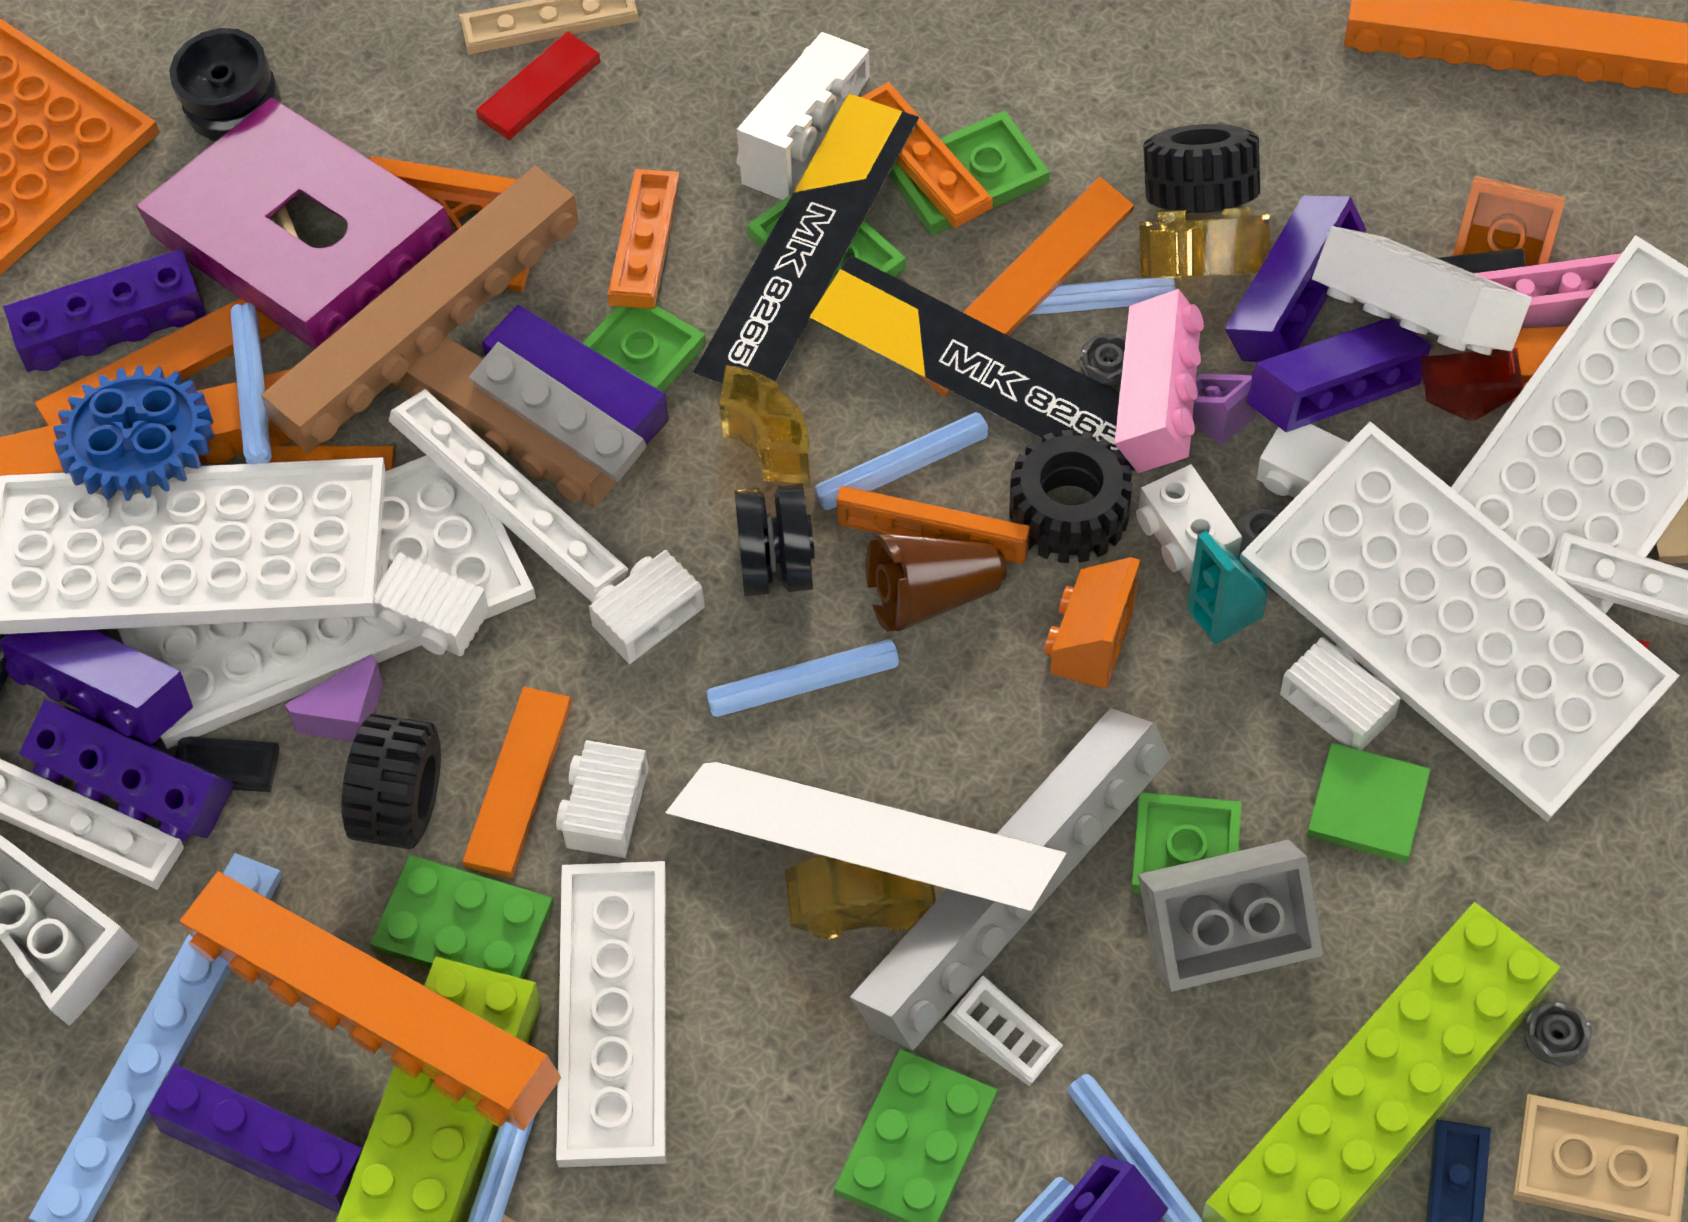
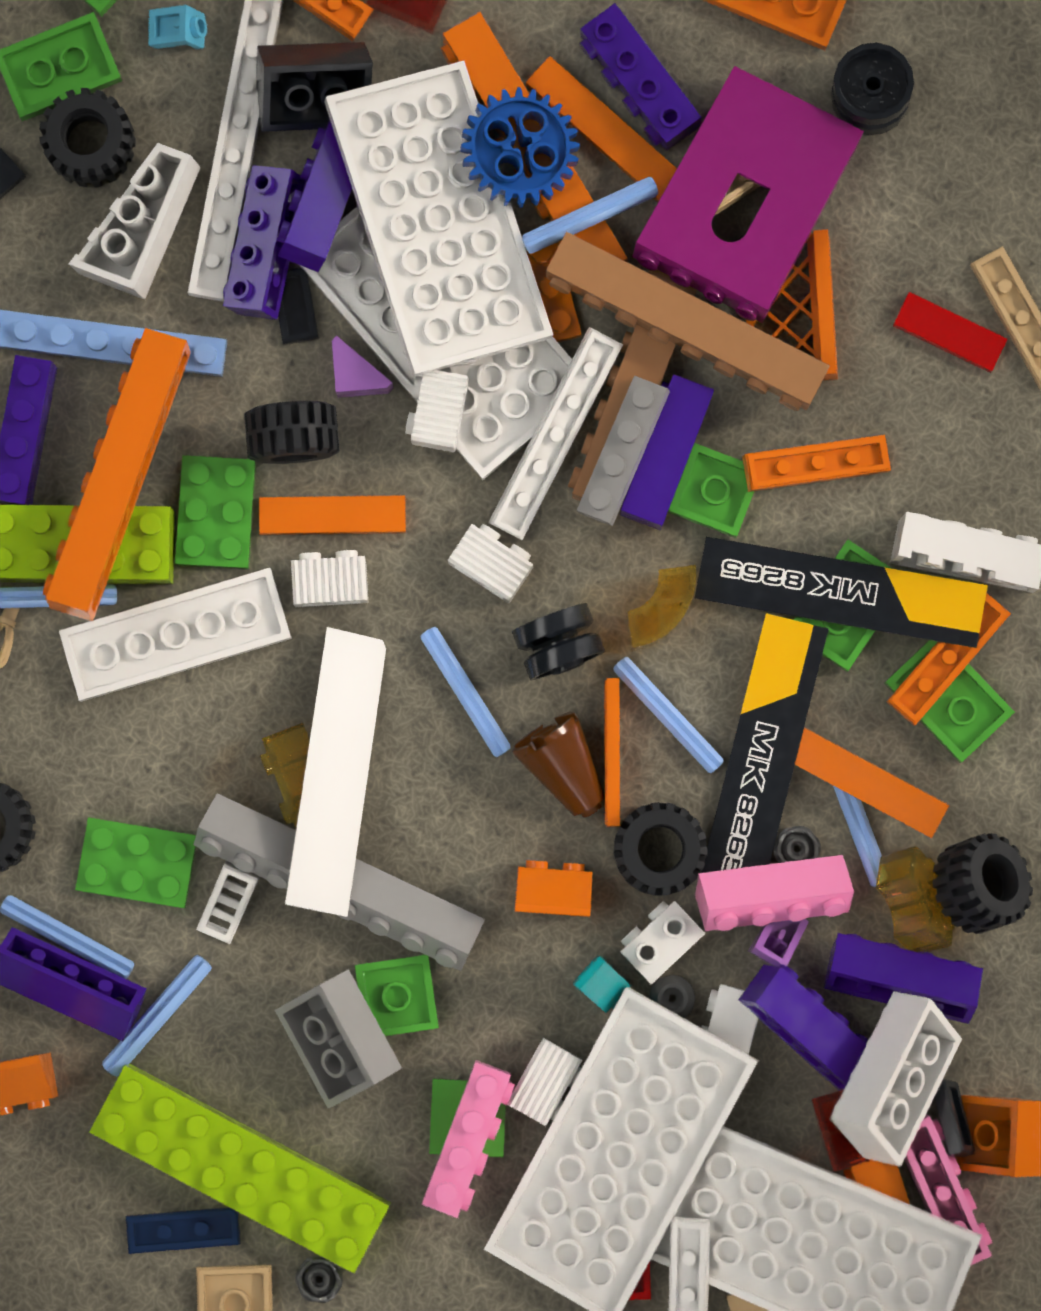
camera: 75 degrees right, 25 degrees up
(1399, 791) = (466, 1138): none -> bright pink brick

